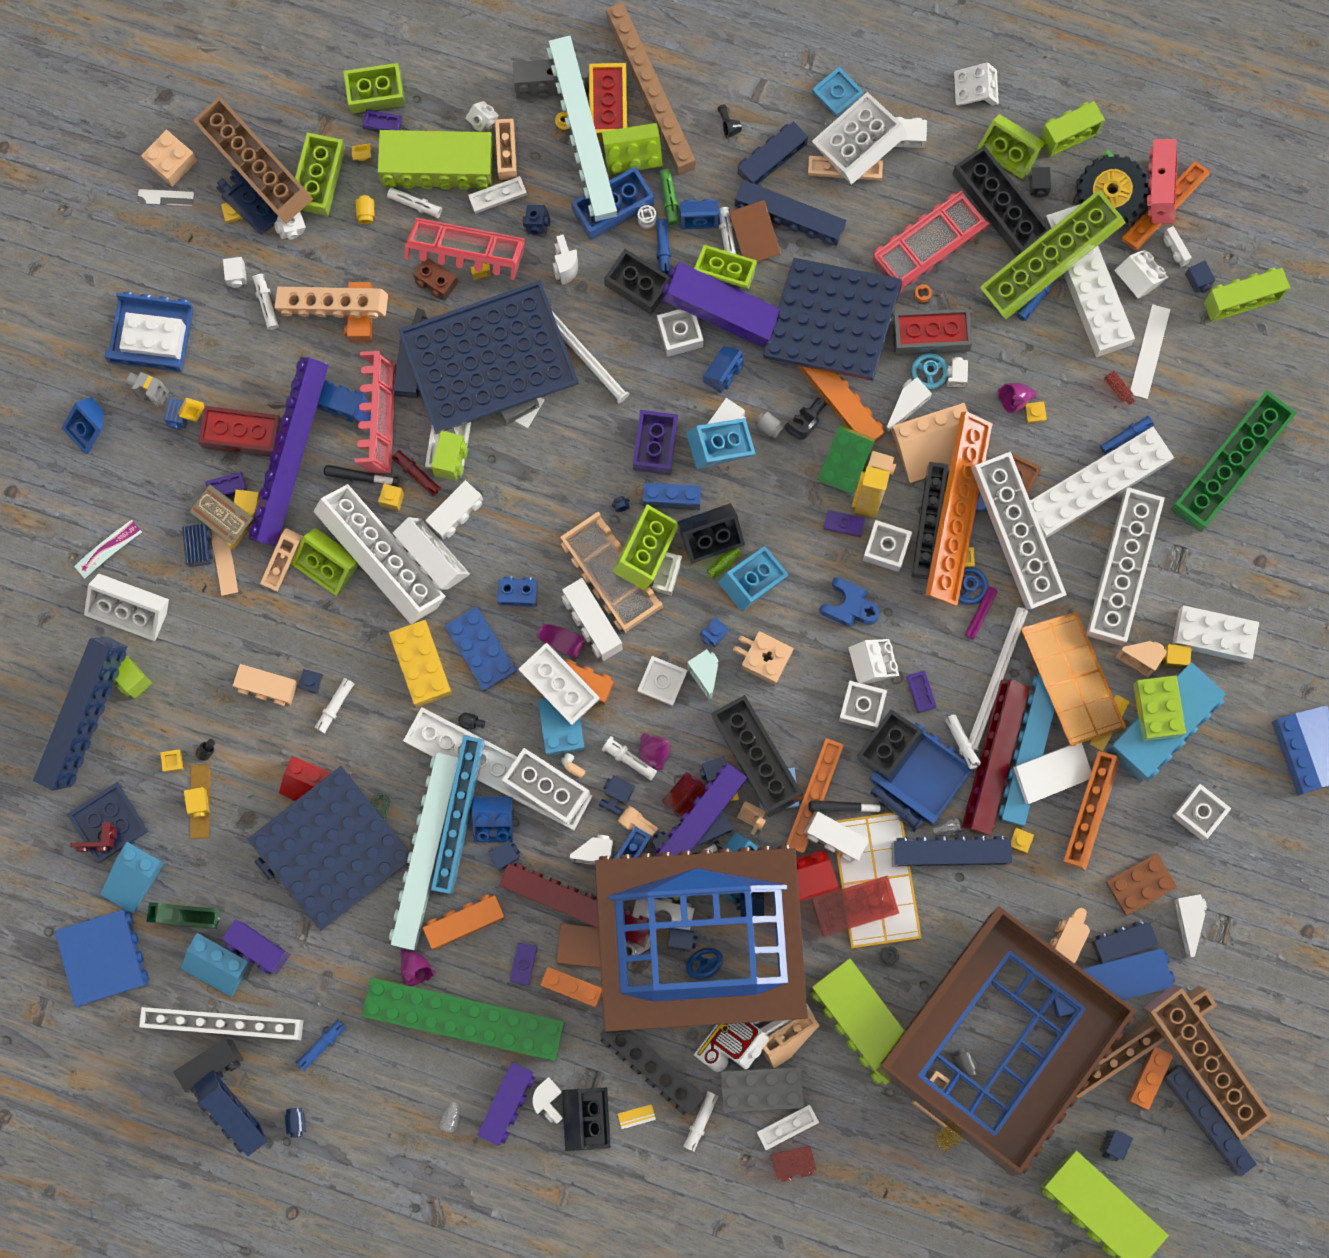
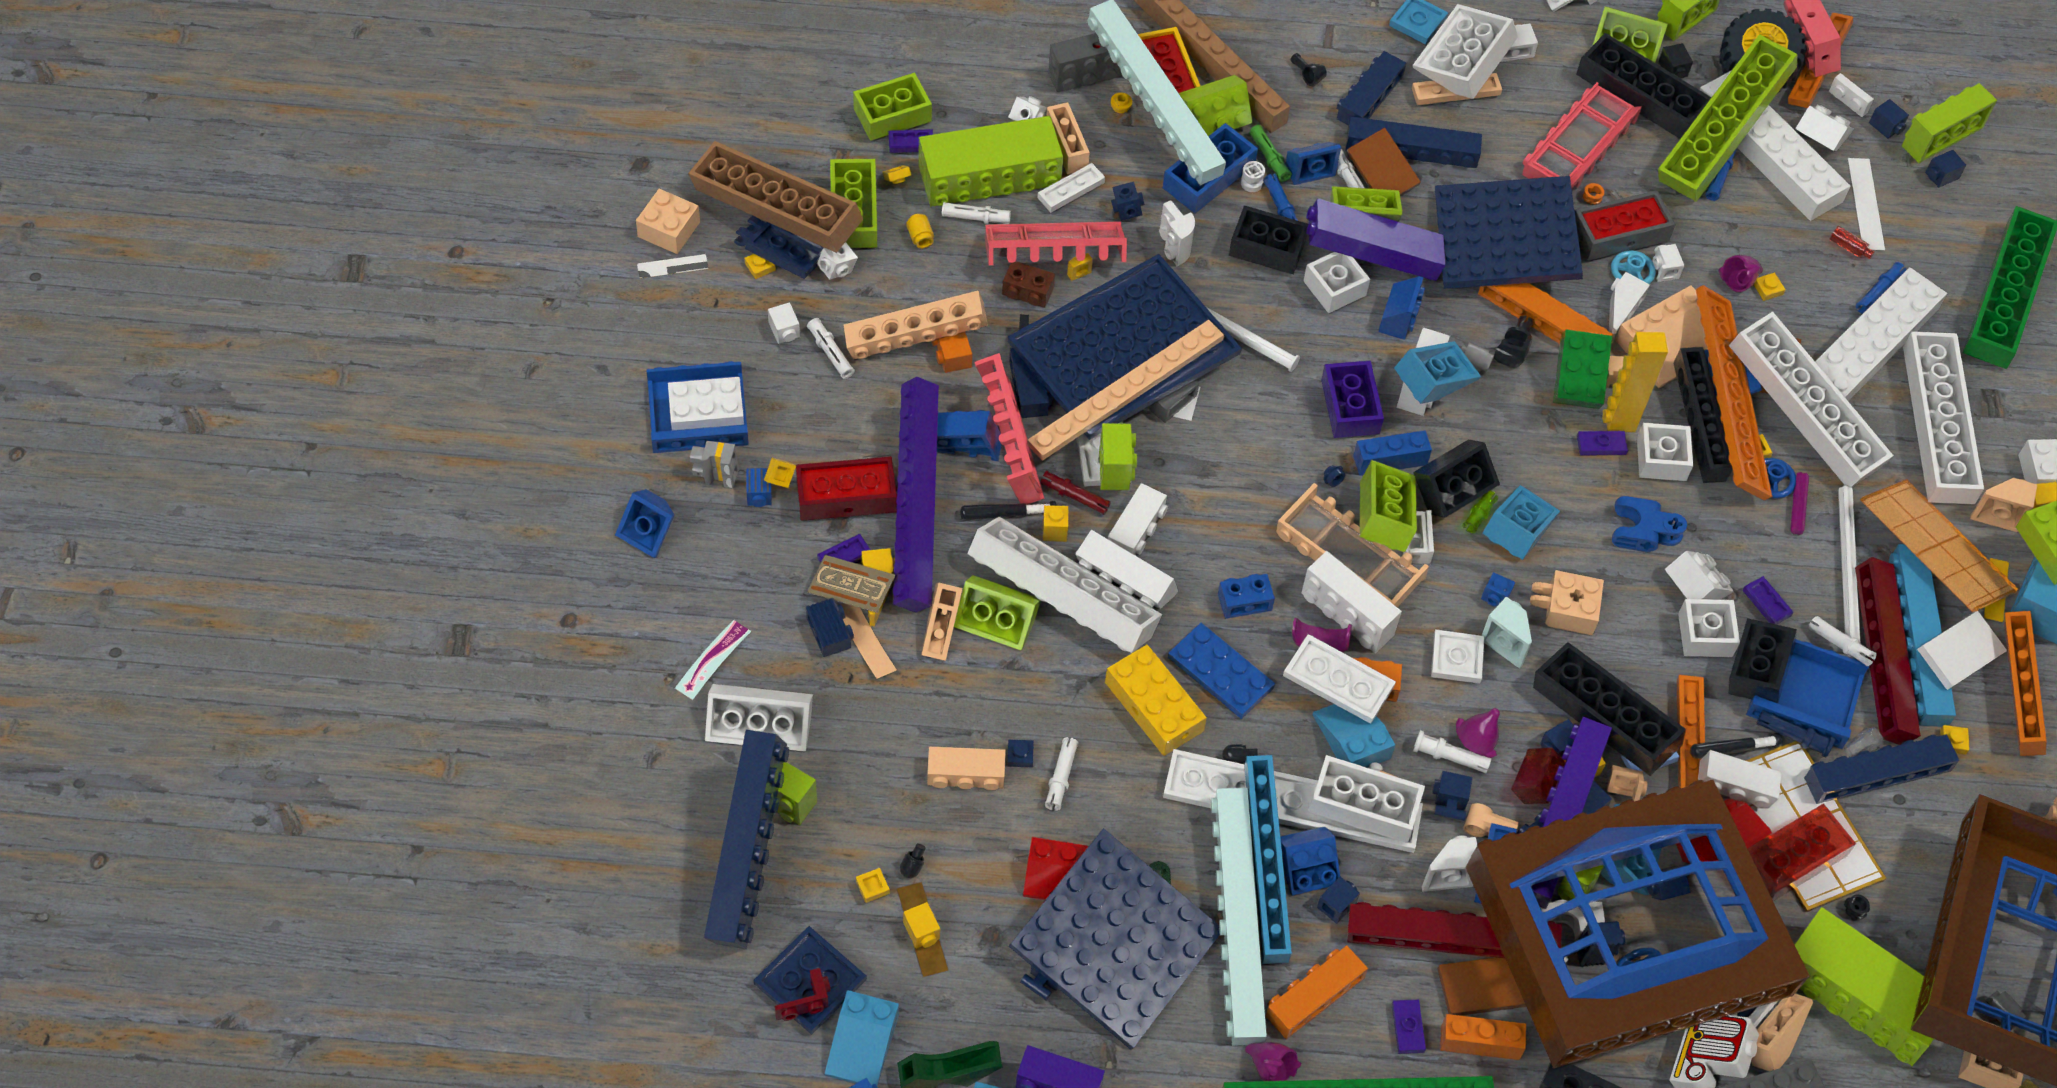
camera: 20 degrees left, 20 degrees down
(474, 399) = (1125, 390): none -> light nougat plate
(1227, 335) = (1945, 168): none -> dark blue brick

